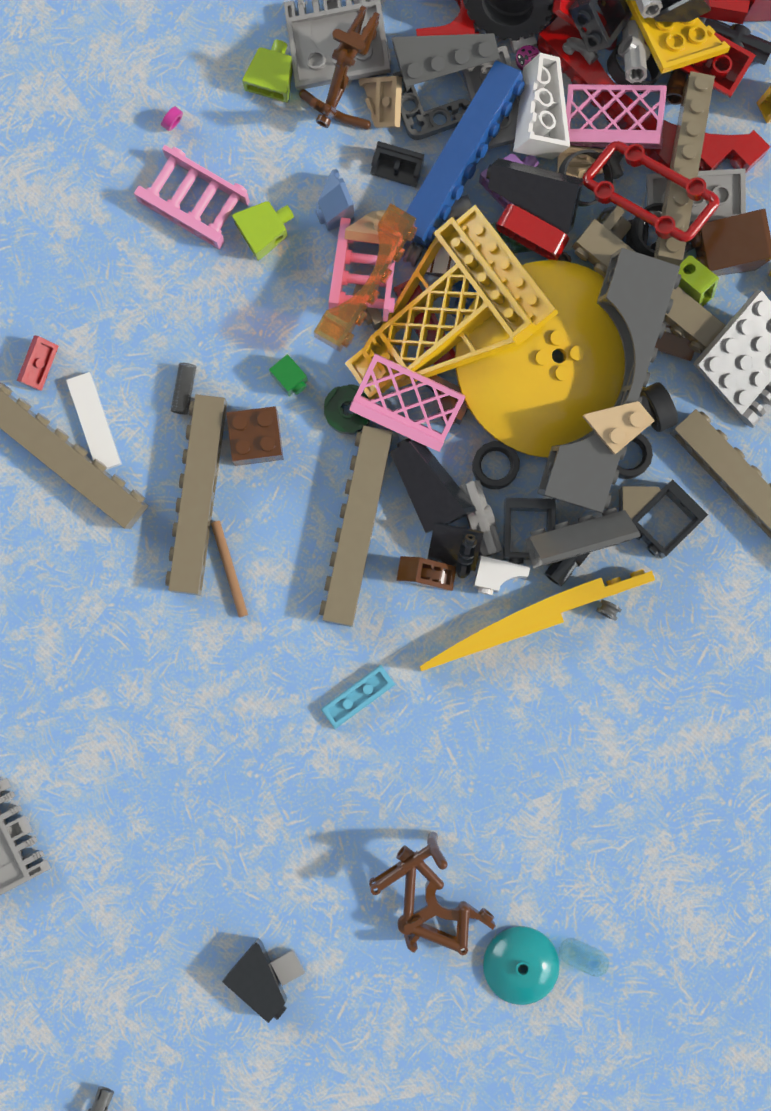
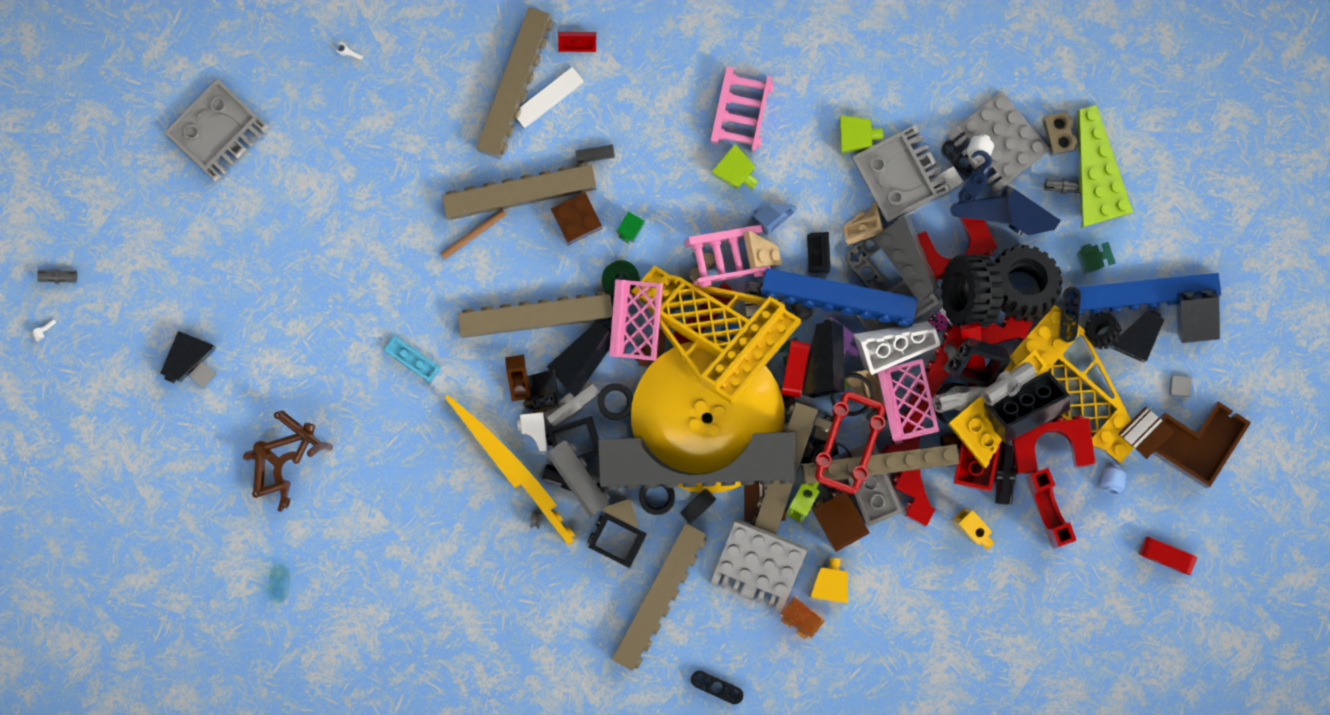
camera: 70 degrees right, 0 degrees up
(172, 118) = (794, 73): dark pink tile -> none
(339, 322) = (675, 250): clear orange arch -> none
(350, 44) = (878, 186): reddish brown piece -> none
(518, 947) = (271, 546): teal dish -> none
(619, 424) = (665, 475): tan wing -> none

